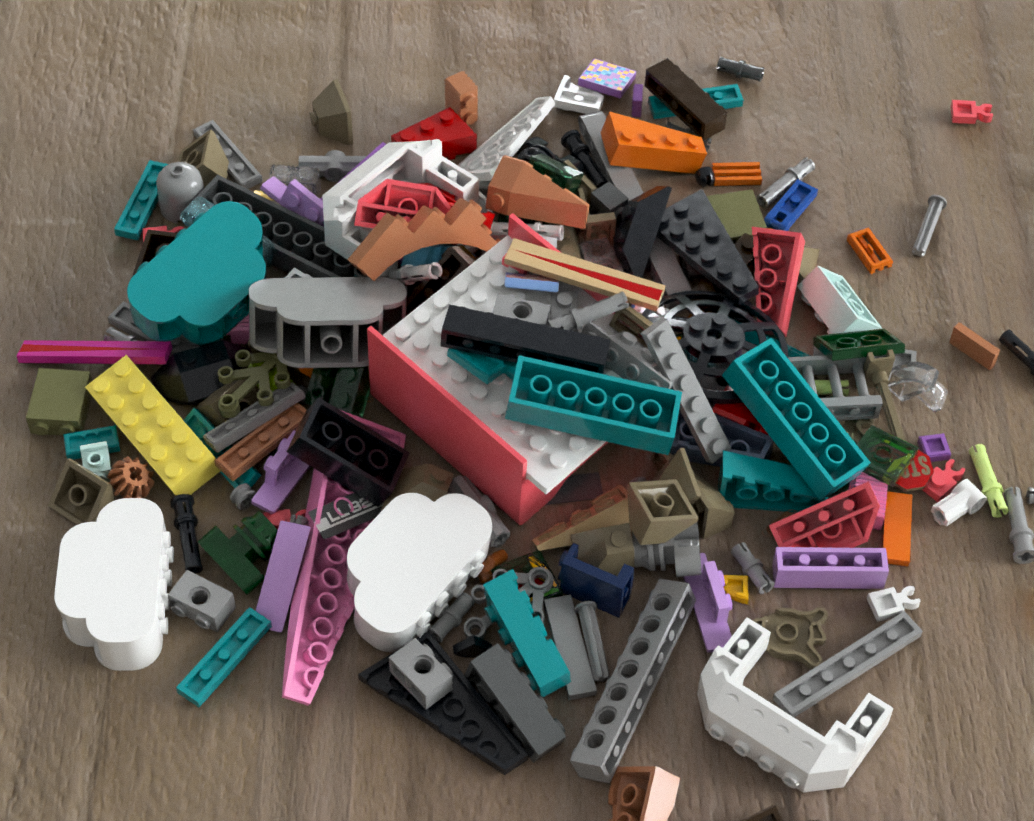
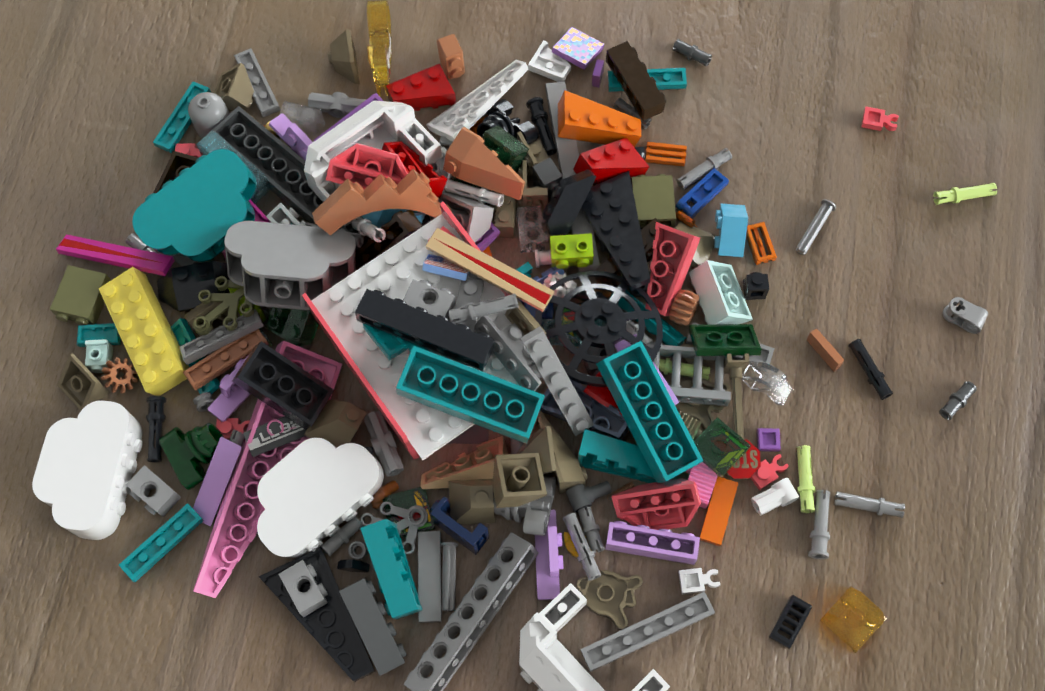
camera: 15 degrees right, 15 degrees up
(373, 91) = (380, 42): none -> clear yellow animal
(662, 269) = (571, 250): none -> lime brick
(683, 177) = (612, 161): none -> red wedge
(733, 533) = (584, 496): none -> dark grey pin
(753, 591) = (585, 555): none -> light grey pin
(801, 321) = (684, 307): none -> nougat gear
(836, 237) = (732, 227): none -> medium azure brick
(878, 284) = (755, 282): none -> black brick
(1018, 613) = (793, 600): none -> black slope

